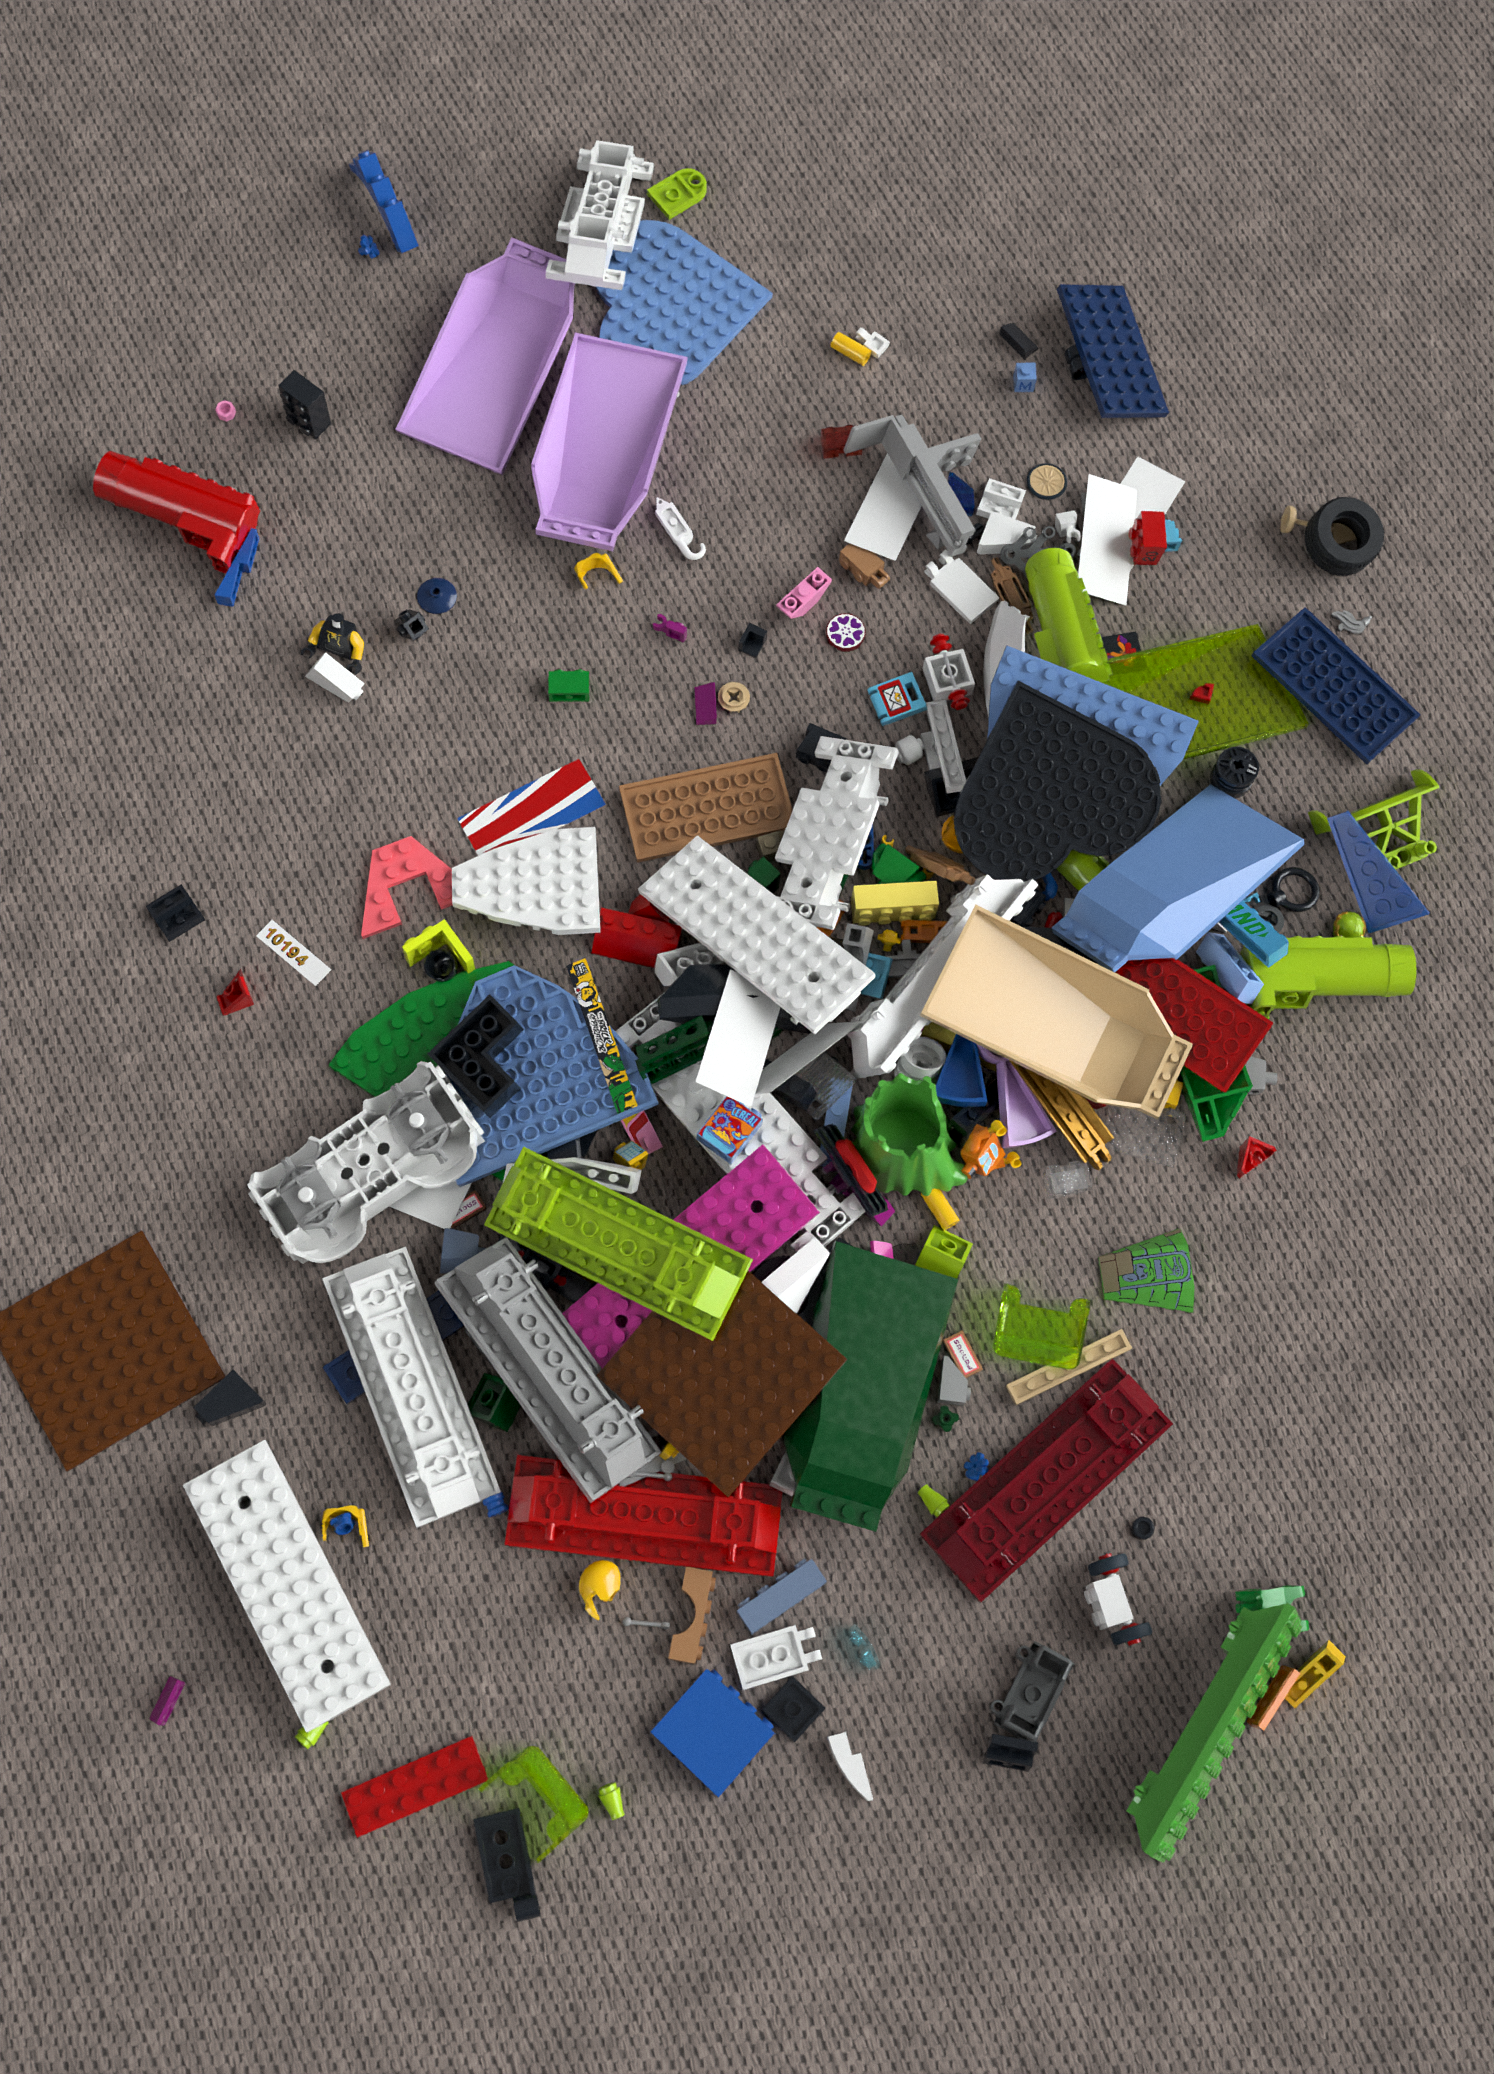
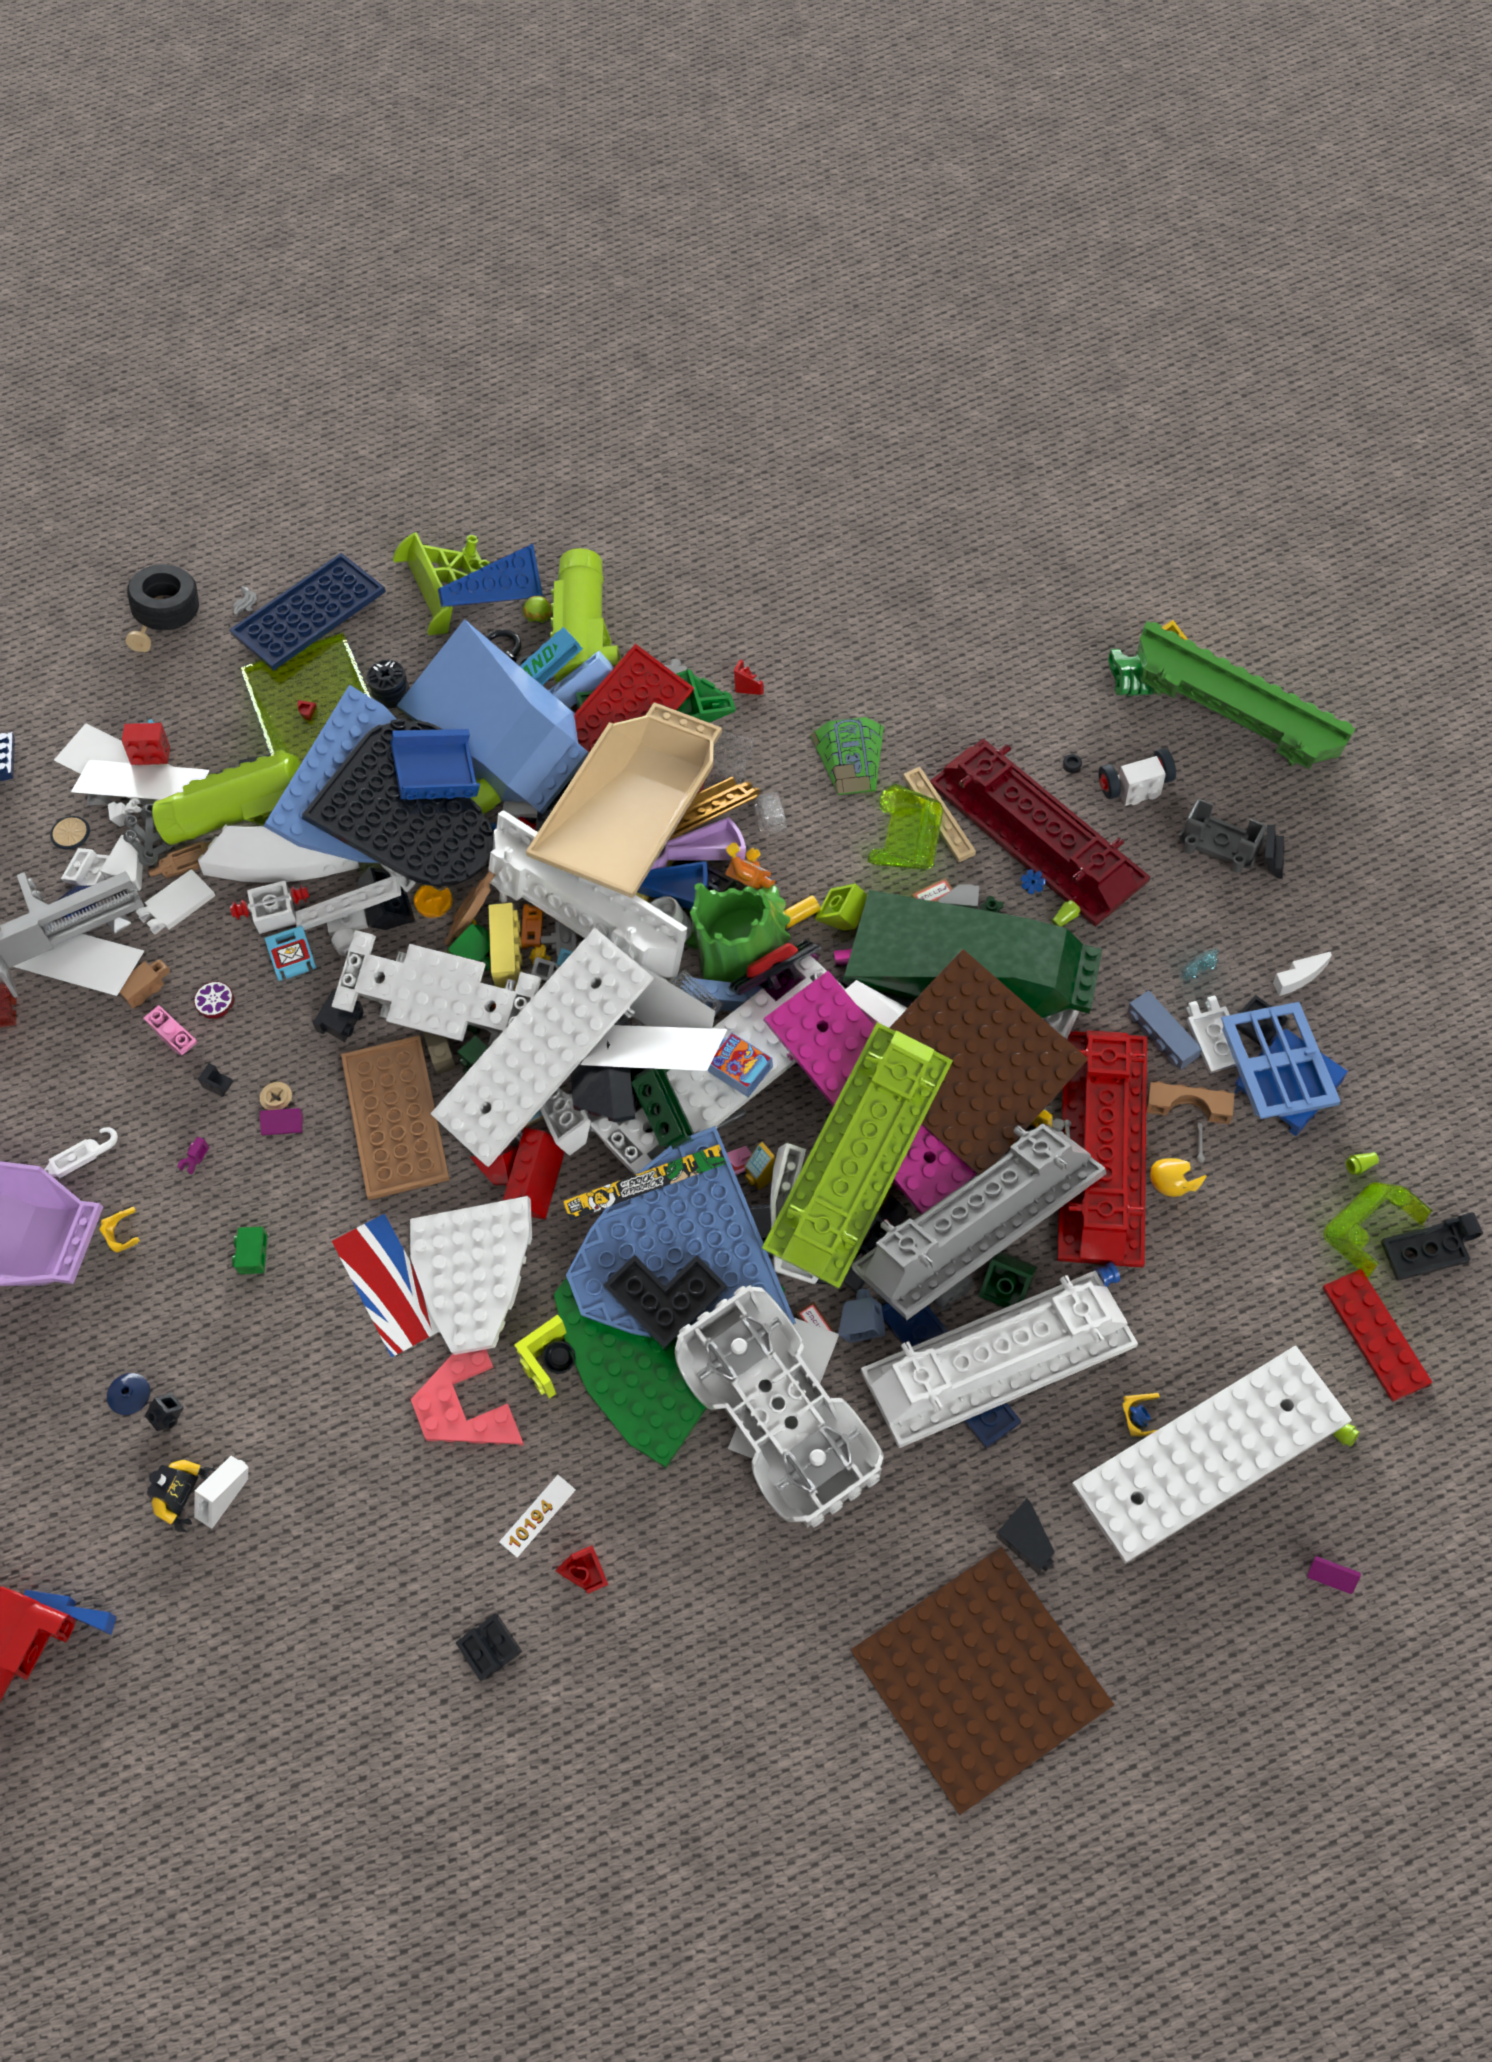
camera: 80 degrees left, 10 degrees down
(731, 1718) = (1247, 1066): none -> medium blue door
(1099, 814) = (433, 764): none -> blue panel

